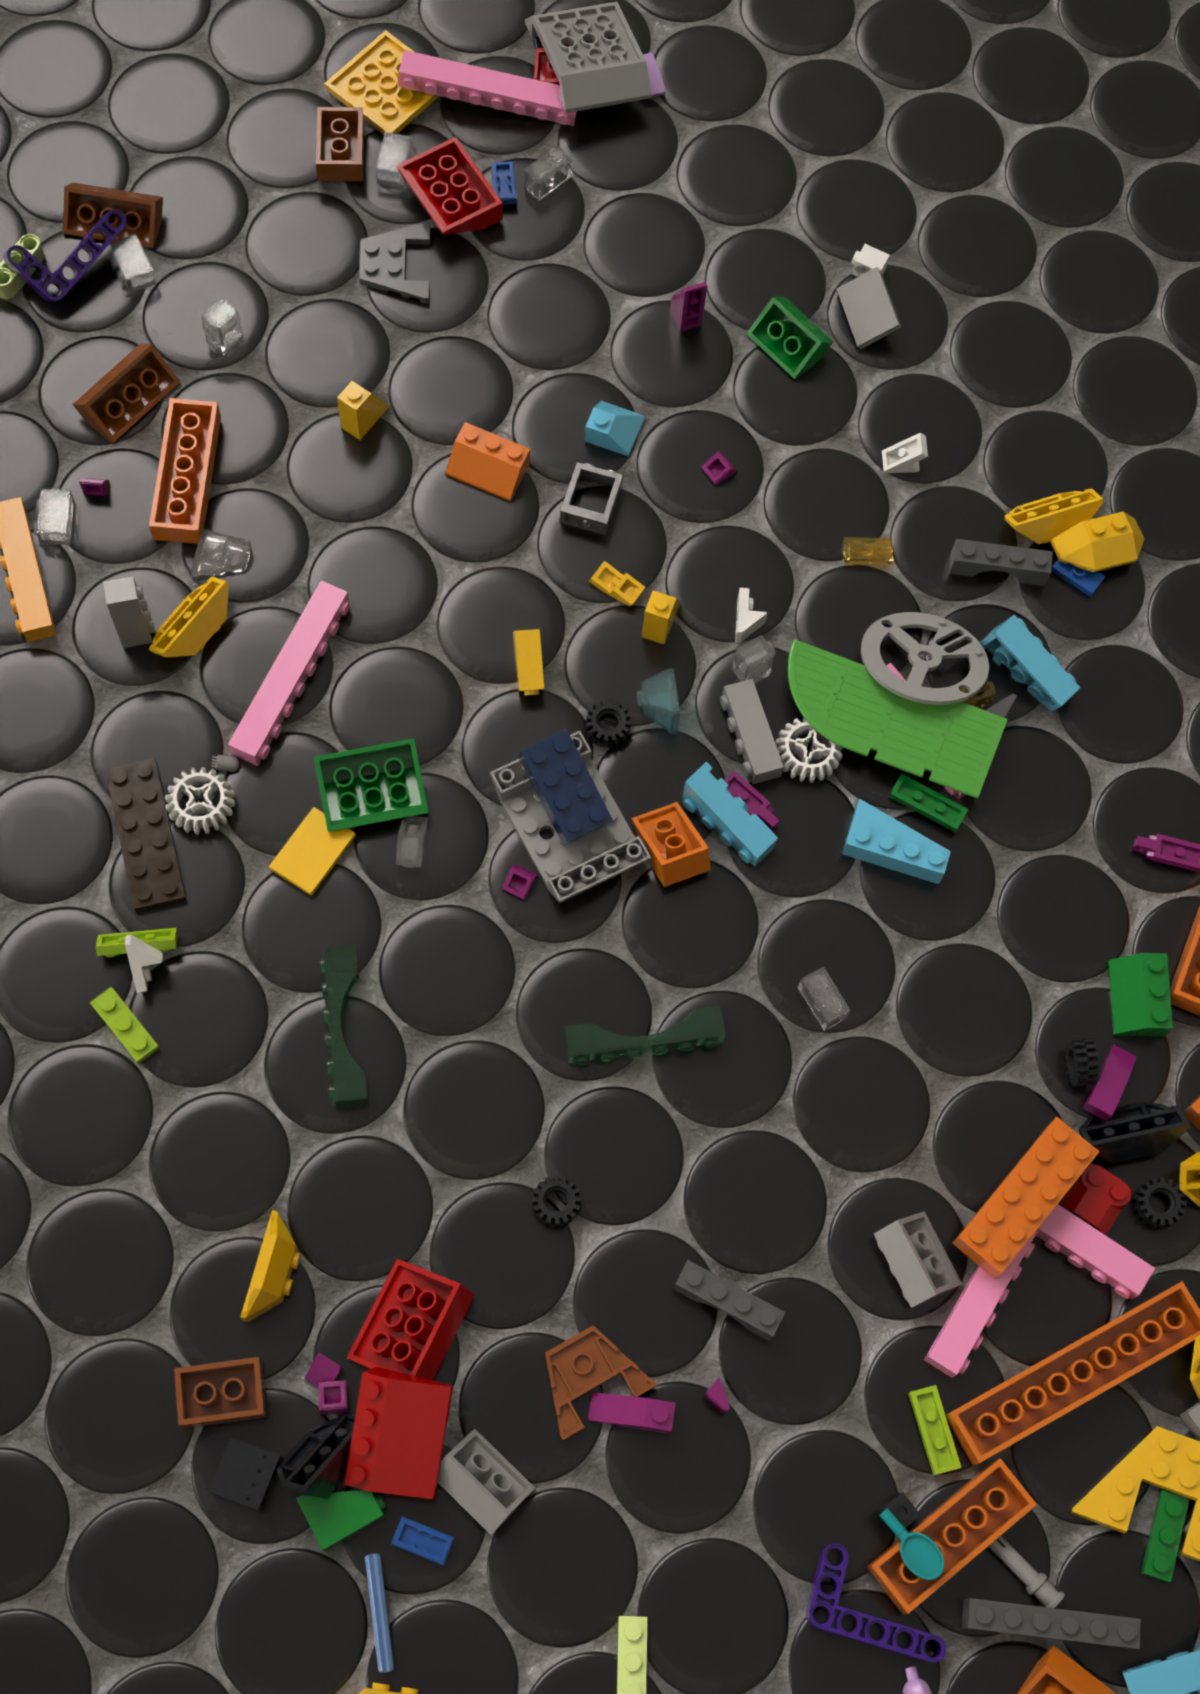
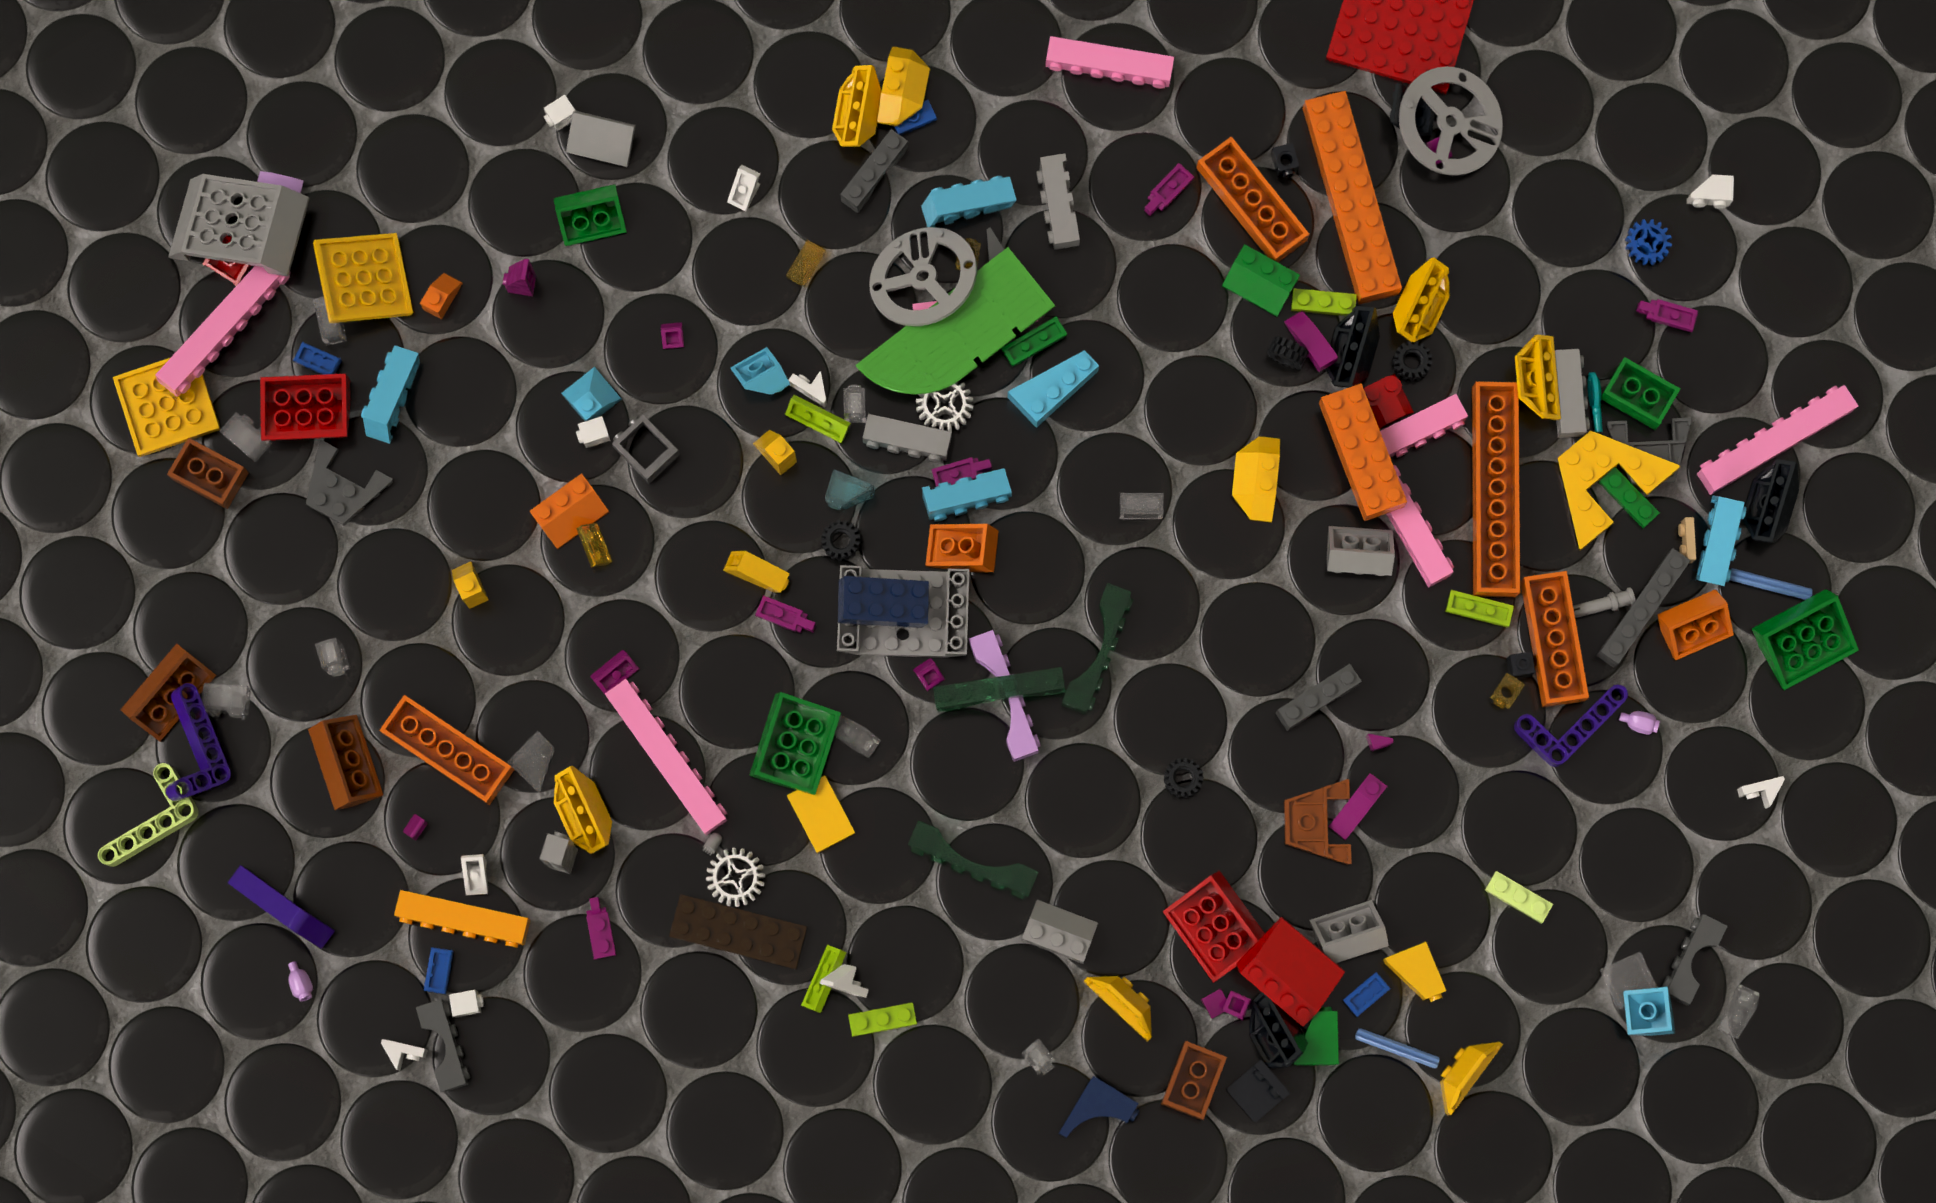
camera: 55 degrees left, 10 degrees up
(54, 517) = (428, 871): clear brick -> none
(73, 556) = (474, 874): none -> white slope
(78, 702) = (600, 930): none -> magenta hinge
(147, 1302) = (1100, 1101): none -> dark blue arch
(161, 1206) = (1038, 1057): none -> clear slope
(315, 1158) = (1059, 931): none -> light grey slope
(358, 587) = (614, 671): none -> magenta slope
(467, 500) = (594, 545): none -> clear yellow plate
(480, 1587) = (1418, 971): none -> yellow slope
(499, 709) = (784, 615): none -> magenta hinge
(504, 1004) = (988, 654): none -> lavender arch
(507, 253) = (390, 393): none -> medium azure wedge
(562, 978) = (1004, 687): none -> clear green arch
(579, 444) = (593, 432): none -> white brick
(603, 175) = (363, 277): none -> yellow plate
(619, 586) = (728, 470): yellow slope -> none
(629, 251) = (440, 295): none -> orange slope
(718, 638) = (817, 418): none -> lime plate
(731, 563) = (761, 373): none -> medium azure slope
(872, 1511) = (1507, 682): none -> clear yellow brick
(916, 1549) = (1554, 668): teal piece -> none
(928, 1105) = (1257, 478): none -> yellow wedge
(1087, 748) = (1058, 202): none -> light grey wedge
(1159, 1072) = (1322, 302): none -> lime plate
(1170, 1627) = (1687, 532): none -> tan plate

